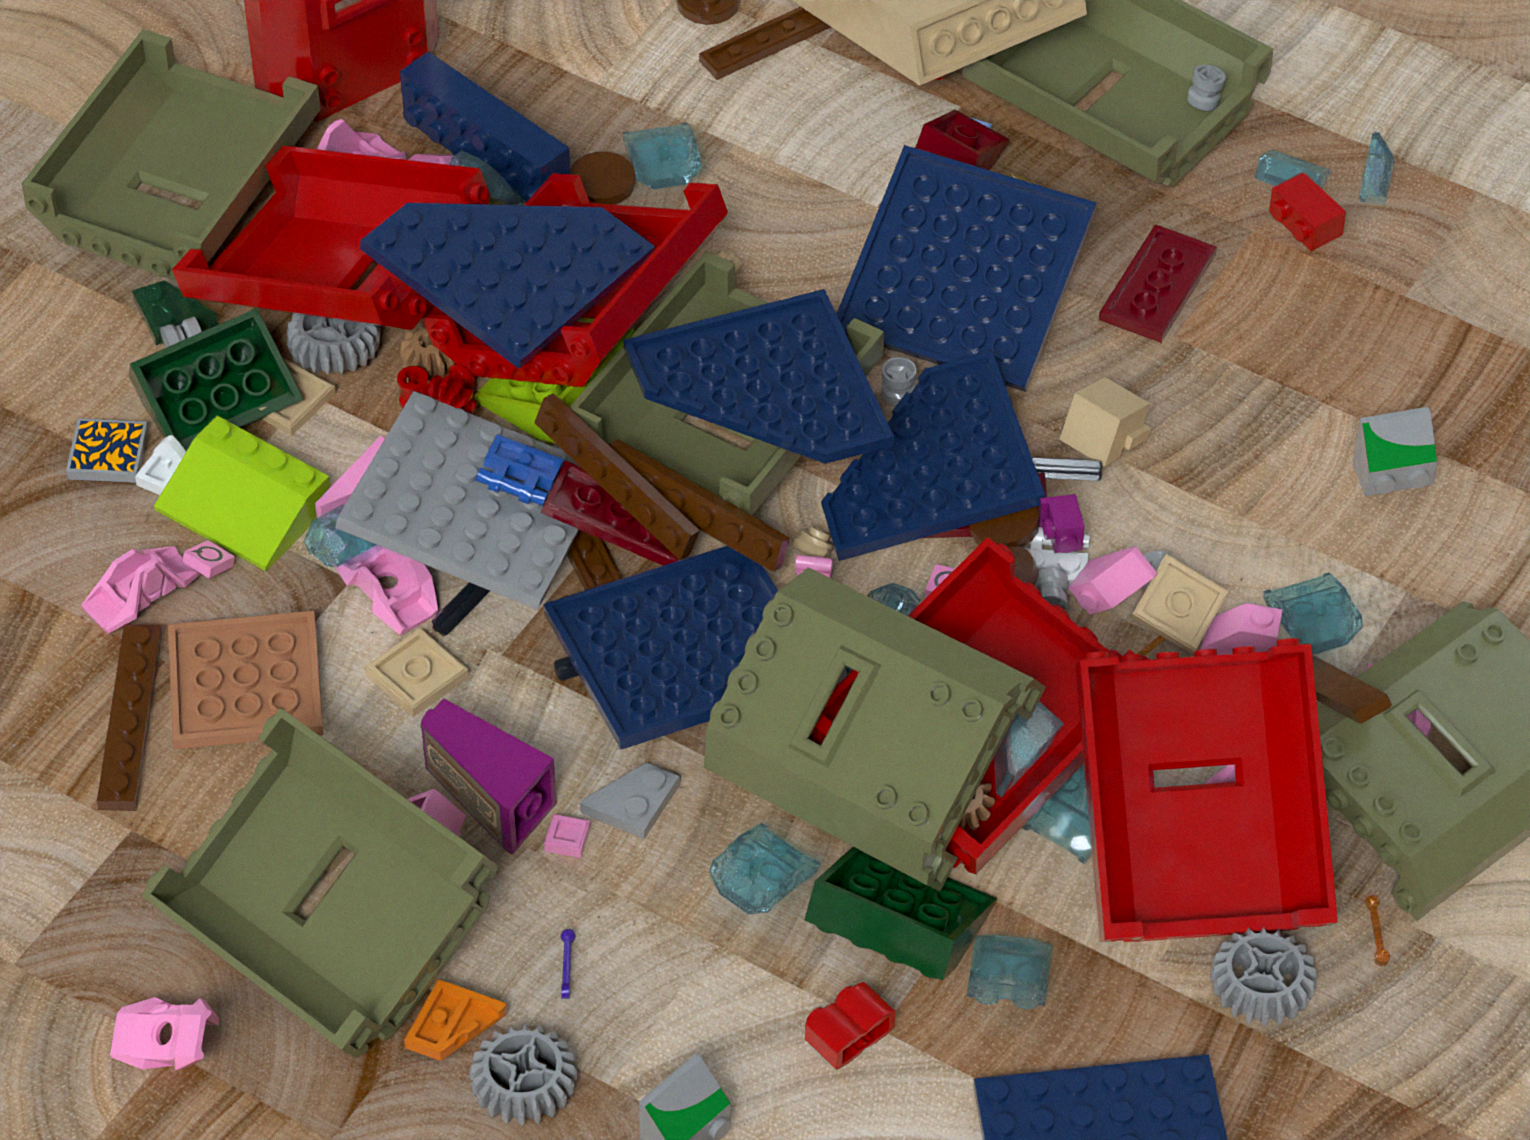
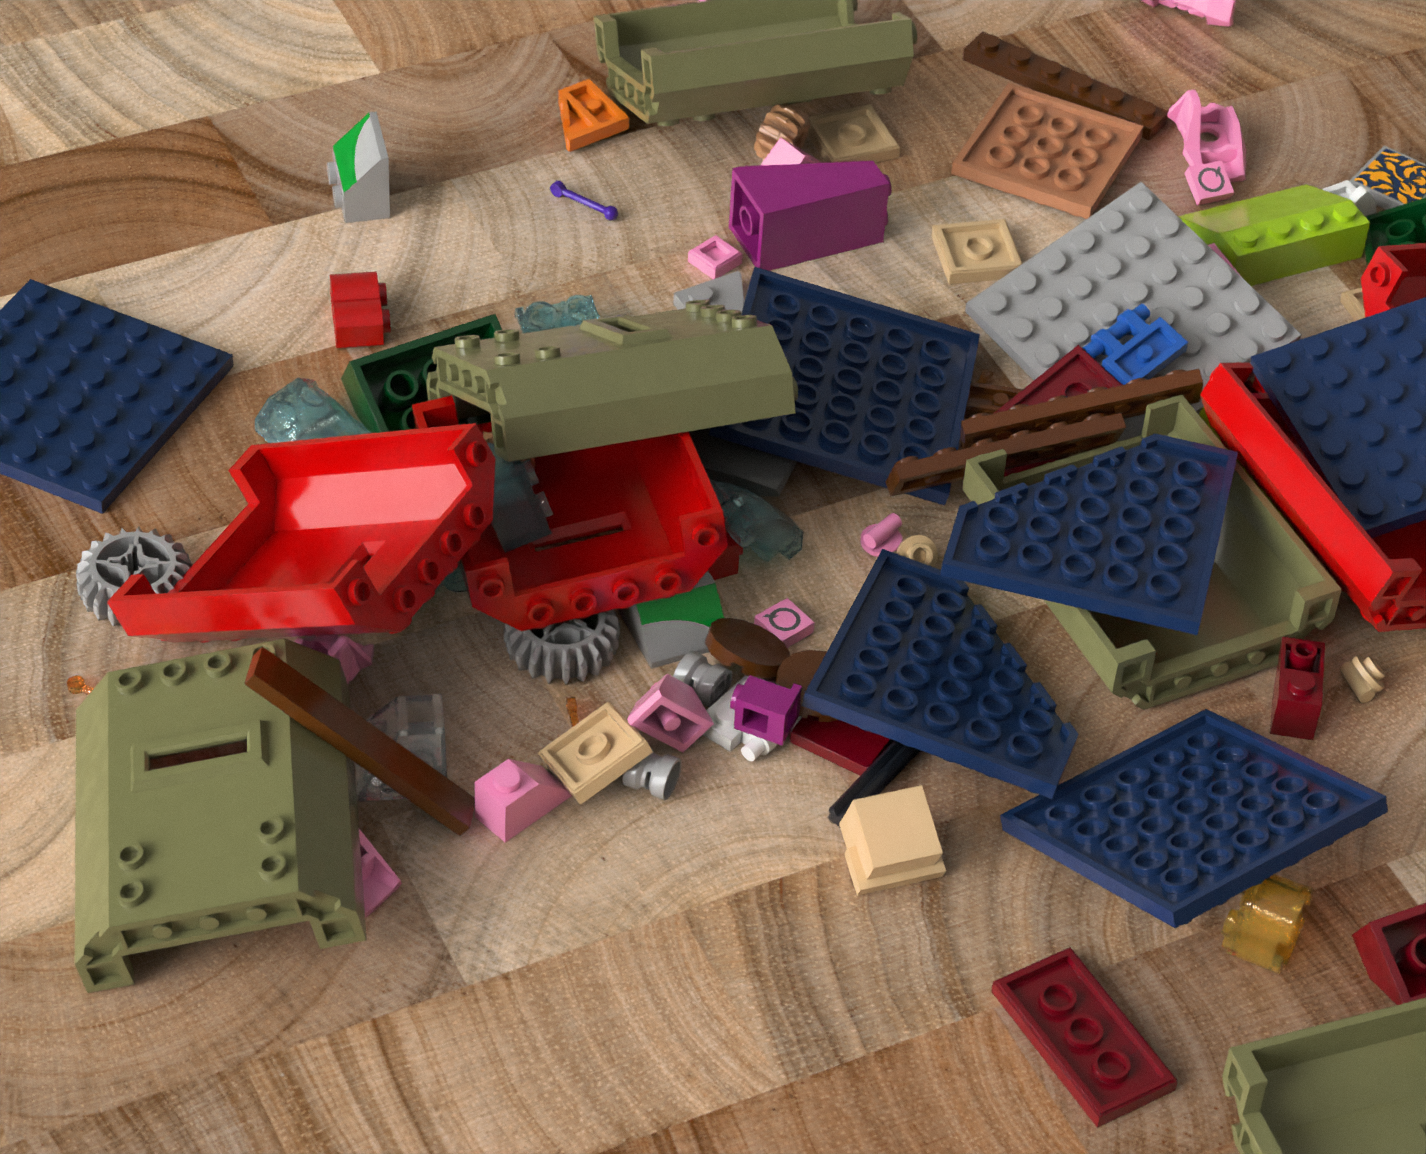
camera: 120 degrees right, 5 degrees down
(534, 1091) = (496, 124): light grey gear -> none
(776, 278) = (1298, 688): none -> dark red slope
(897, 378) = (1087, 713): light grey wheel -> none
(1317, 612) = (499, 863): clear light blue slope -> none
(1395, 451) = (636, 1057): light grey slope -> none

